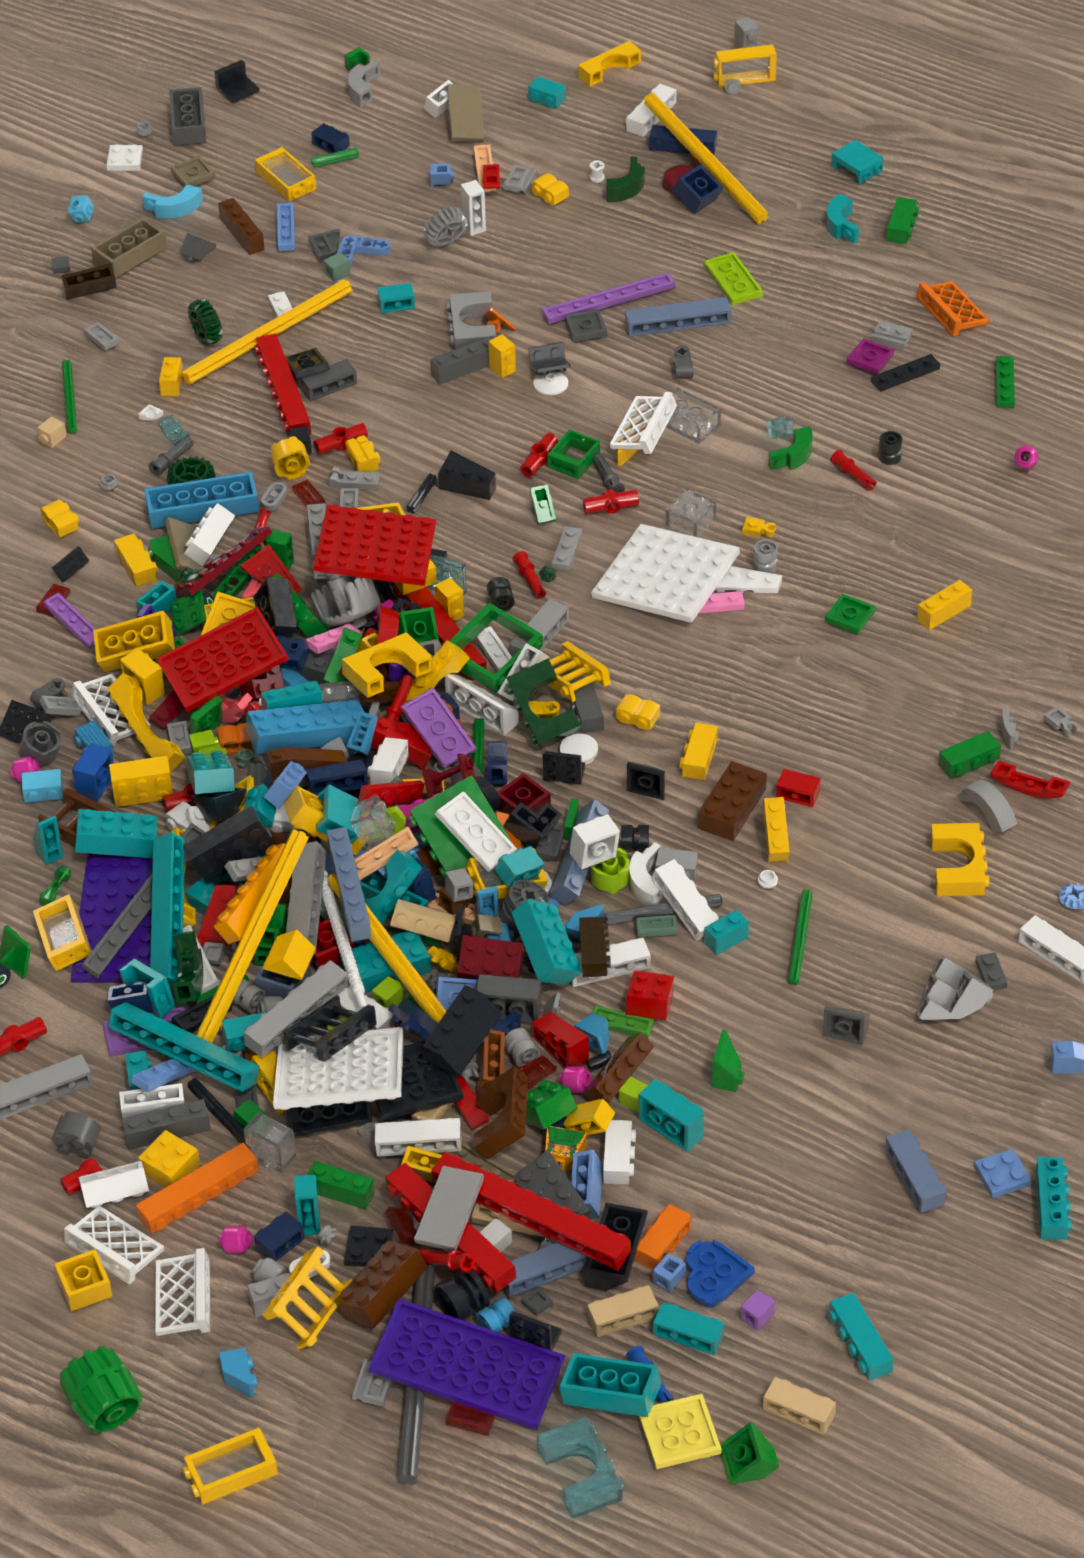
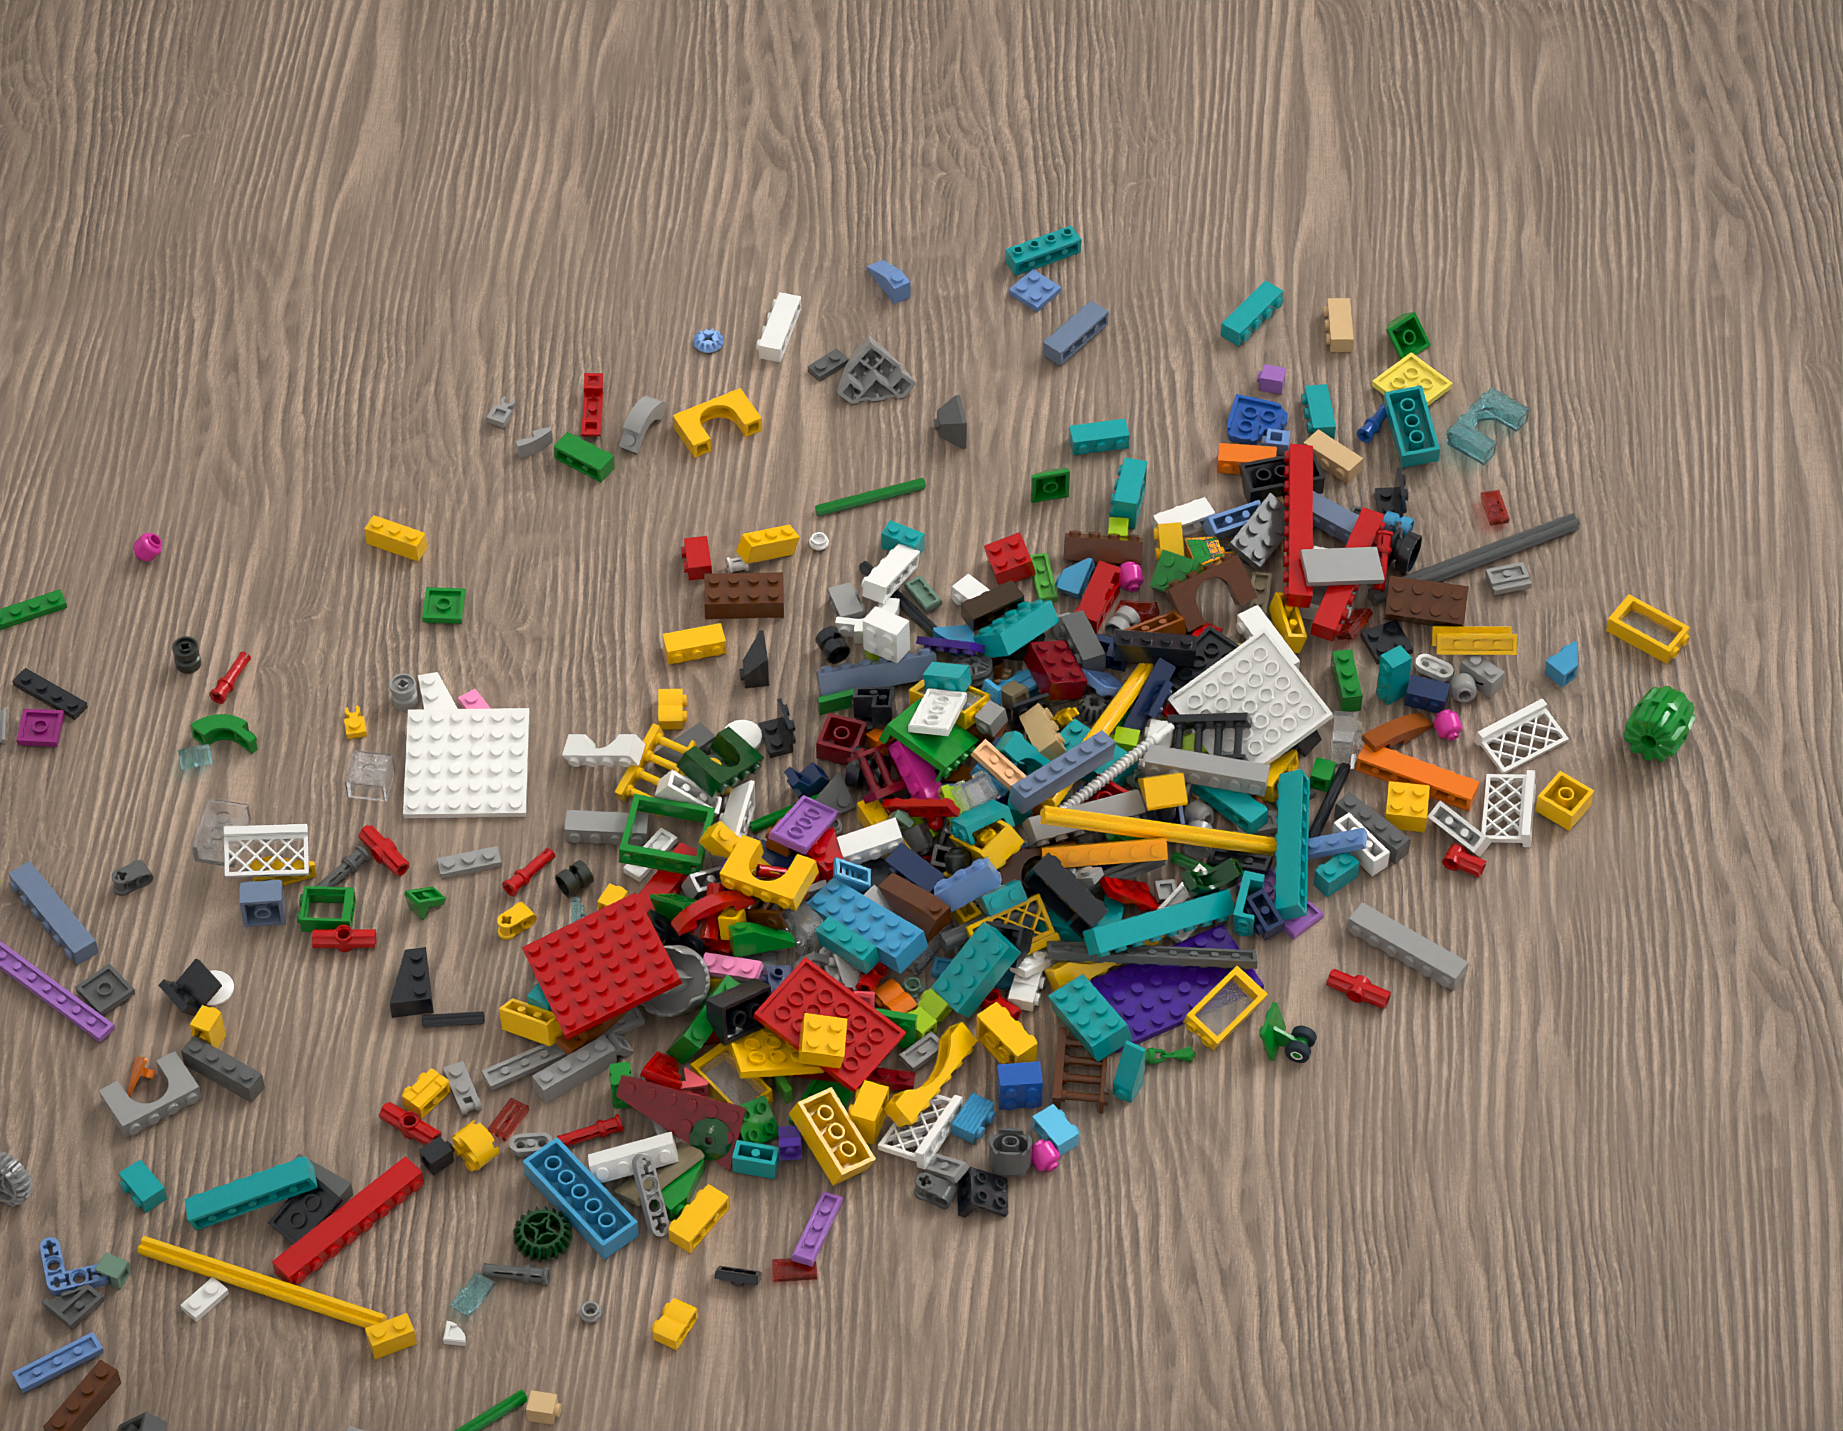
camera: 120 degrees left, 5 degrees up
(75, 1134) = (1432, 879): dark grey brick -> none
(165, 524) = (647, 1196): none -> light grey beam
(201, 637) = (822, 1040): none -> yellow brick
(205, 321) = (293, 1333): dark green gear -> none
(254, 1191) = (1397, 730): none -> dark orange slope
(337, 334) = (250, 1193): none -> teal brick
(467, 1364) = (1456, 521): dark purple plate -> none
(486, 550) = (517, 919): none -> yellow piece
(547, 574) = (519, 858): clear green plate -> none
(568, 899) = (955, 646): none -> dark purple plate
(600, 415) = (262, 903): none -> sand blue brick
(624, 637) = (623, 751): none -> white arch
(765, 1133) = (1099, 436): none -> teal brick

